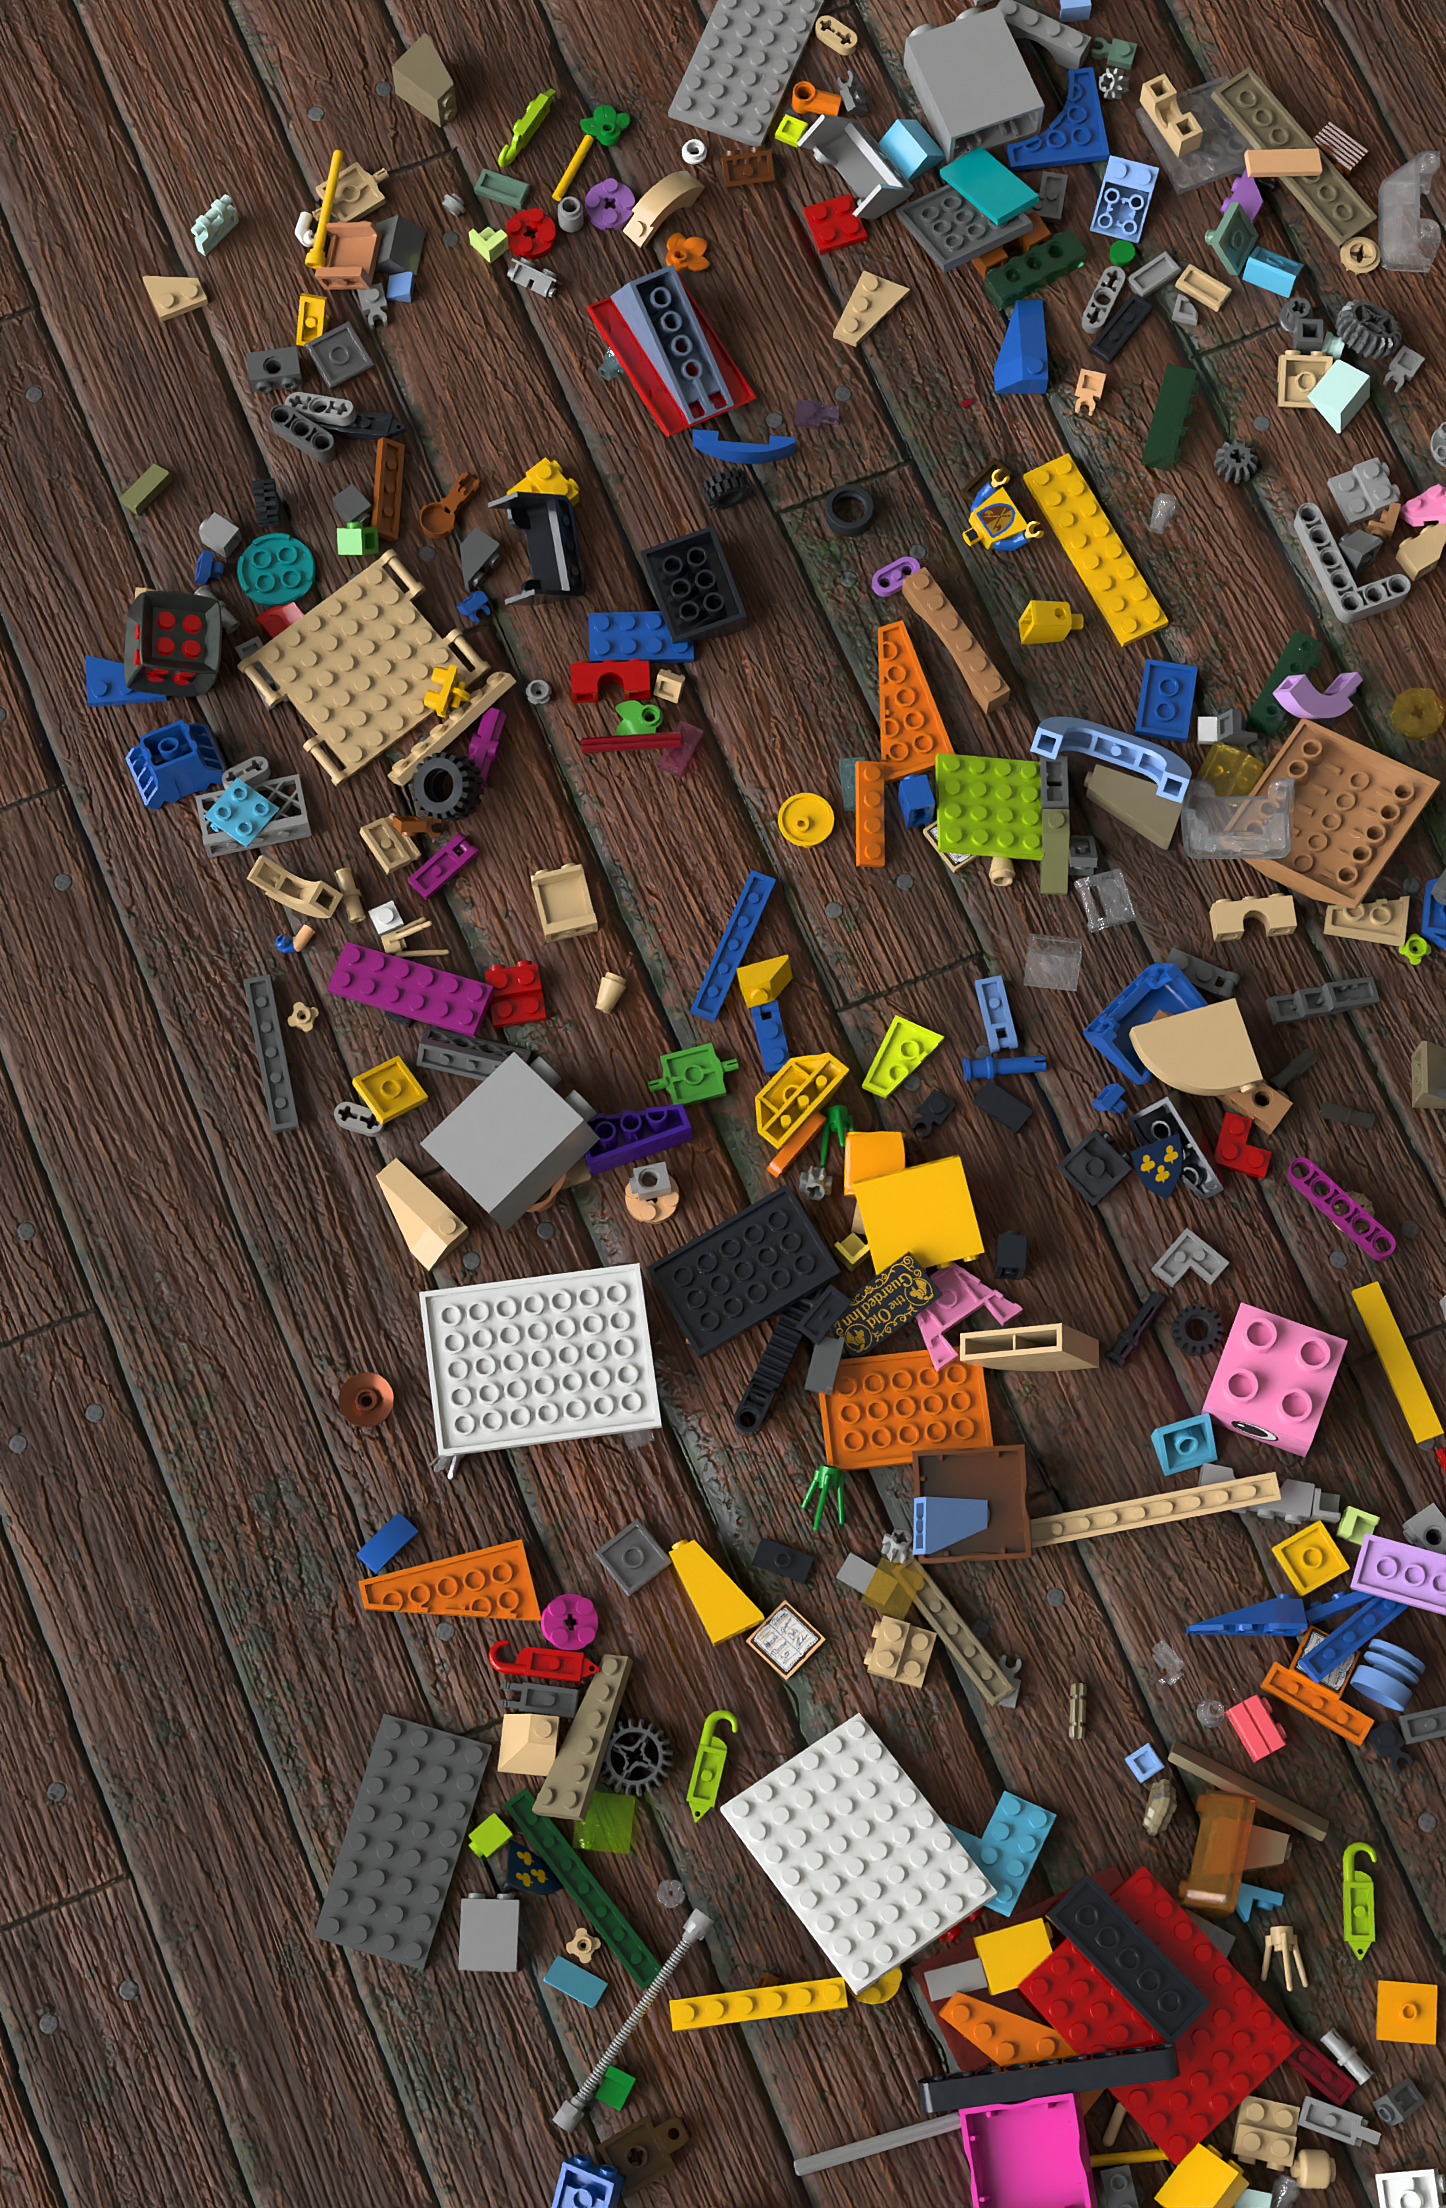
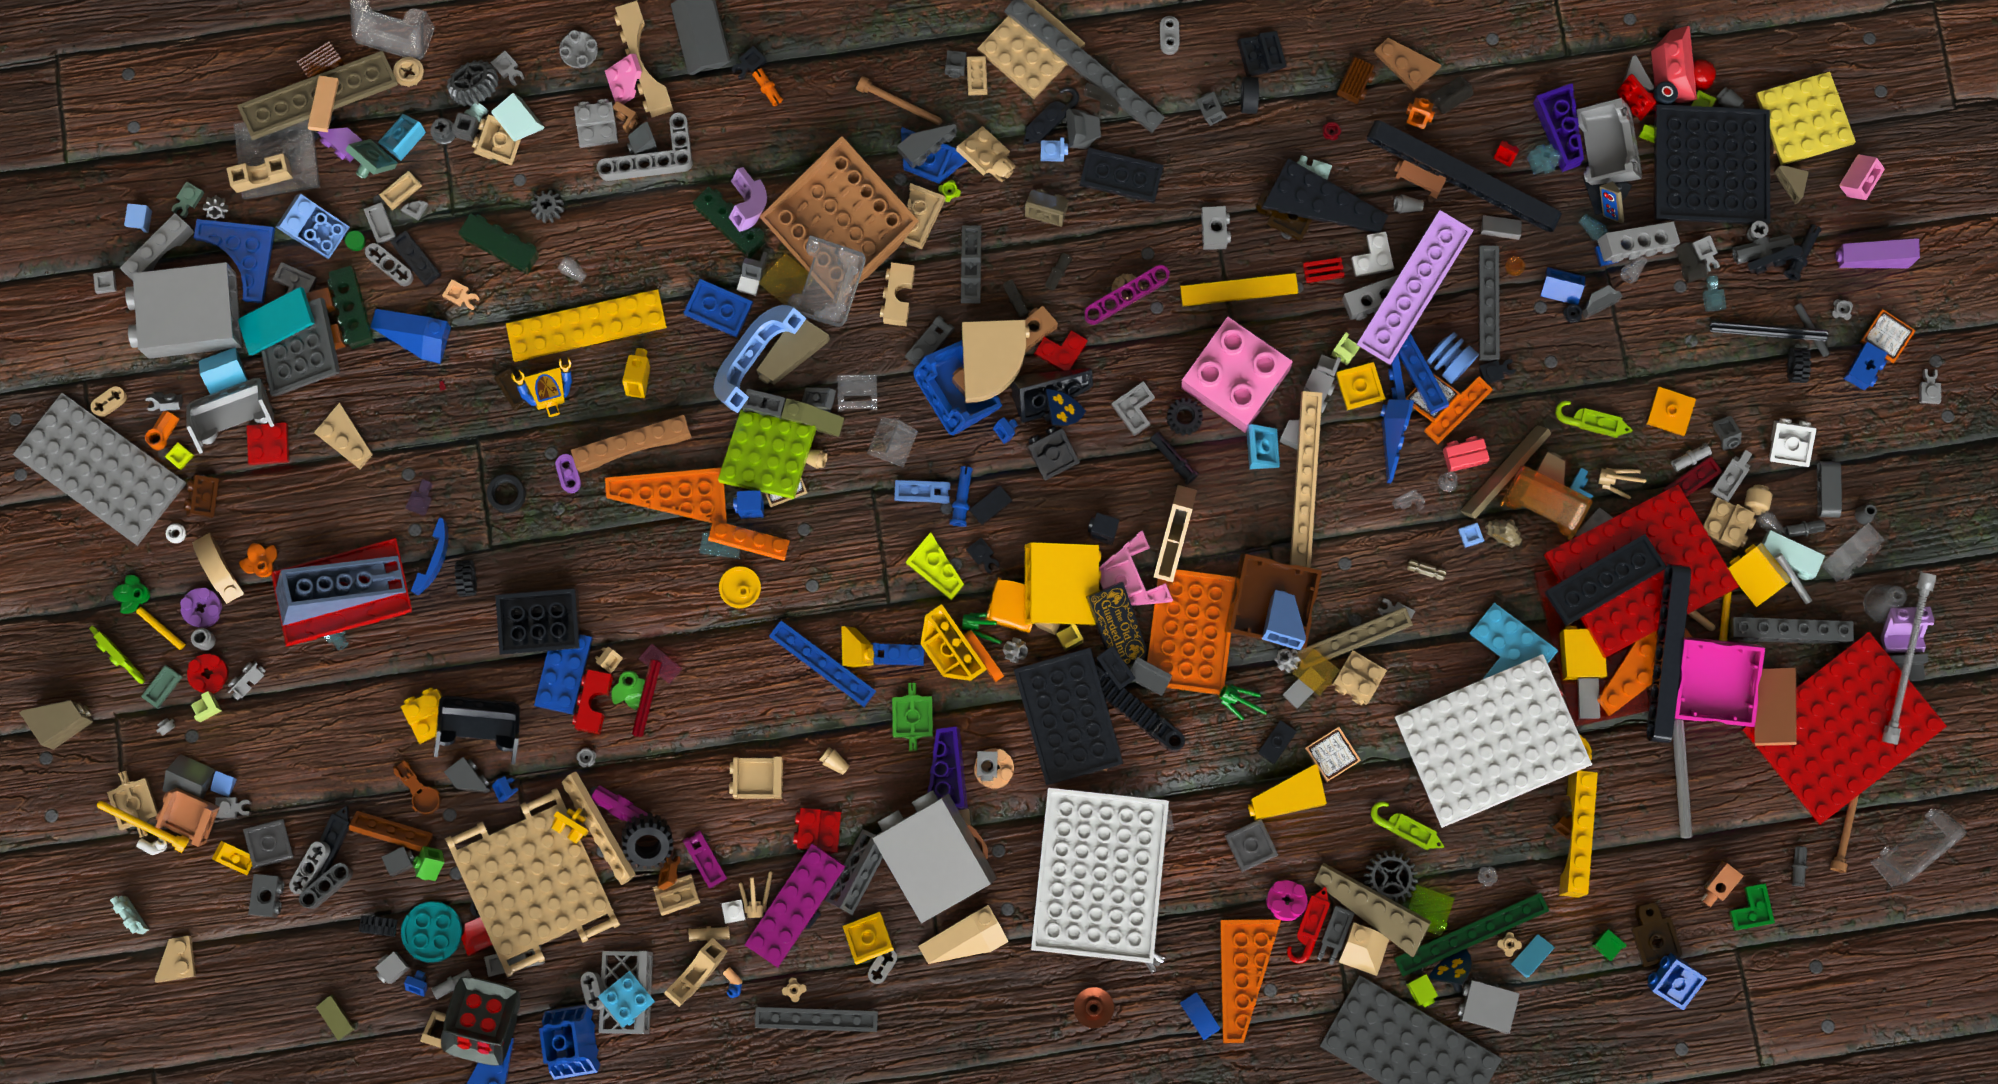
camera: 75 degrees left, 5 degrees up
(570, 2112) = (1618, 978): light grey hose -> none
(1410, 725) = (783, 144): clear yellow plate -> none

